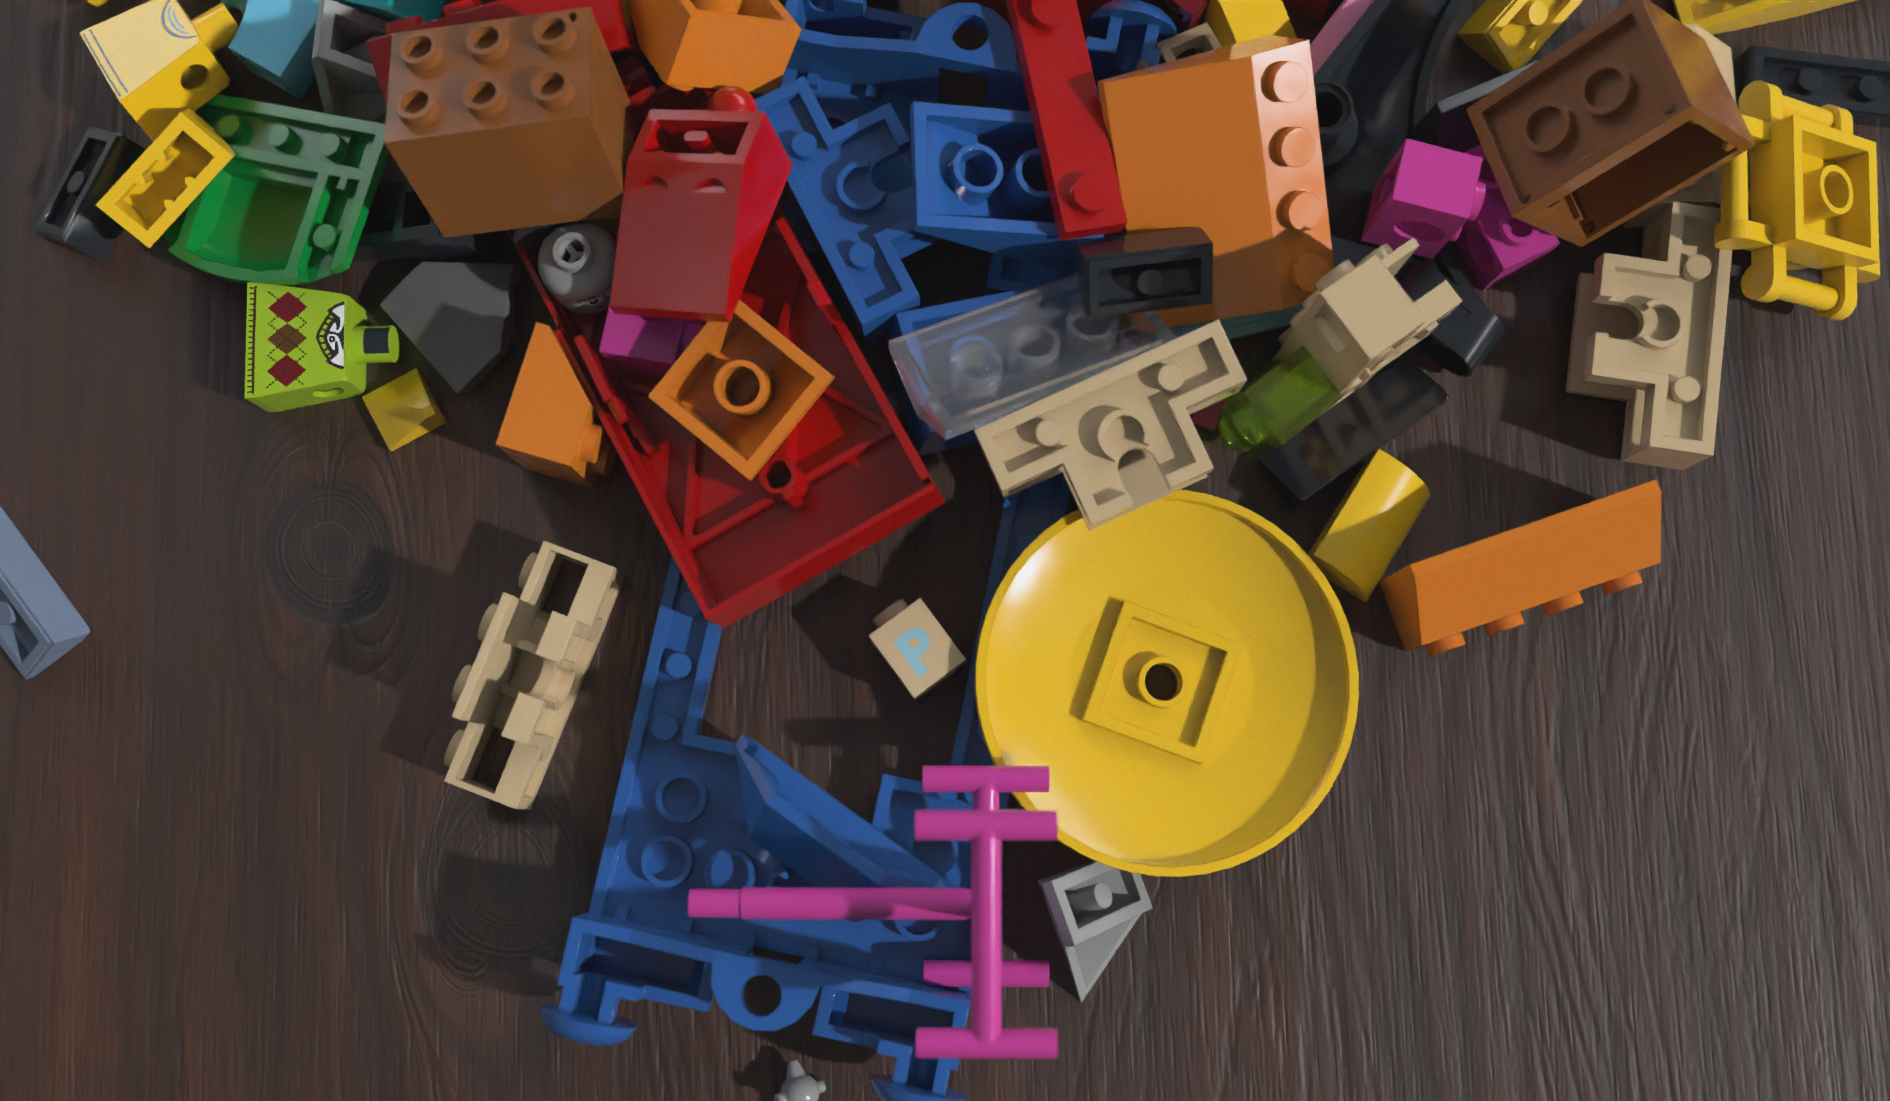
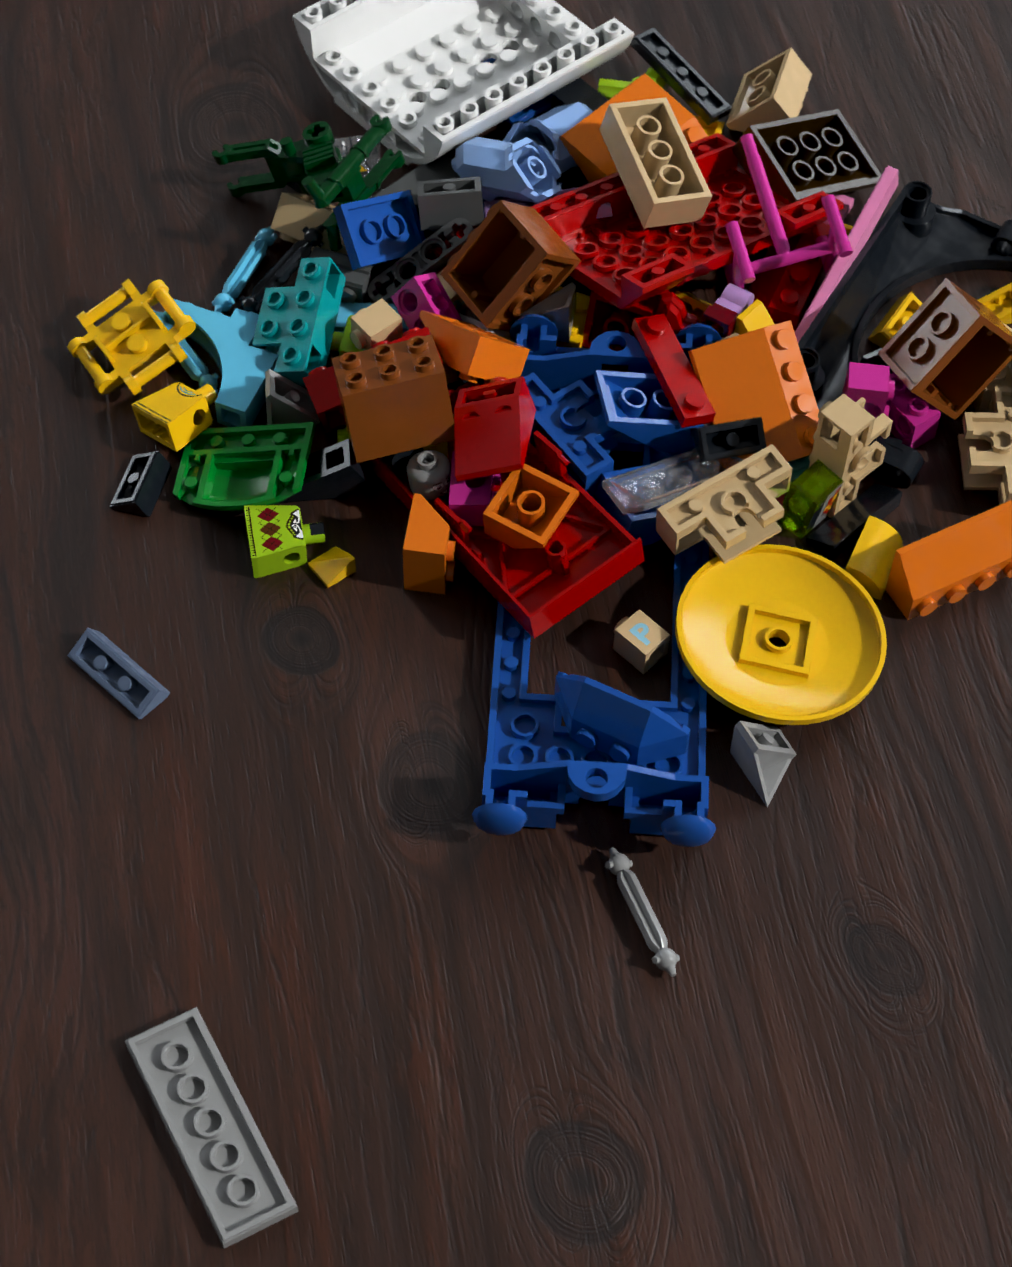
camera: 10 degrees left, 25 degrees down
(166, 177) = (191, 463): yellow brick -> none
(458, 317) = (356, 517): dark grey slope -> none
(528, 674) = (429, 680): tan piece -> none
(982, 903) = (702, 713): dark pink piece -> none

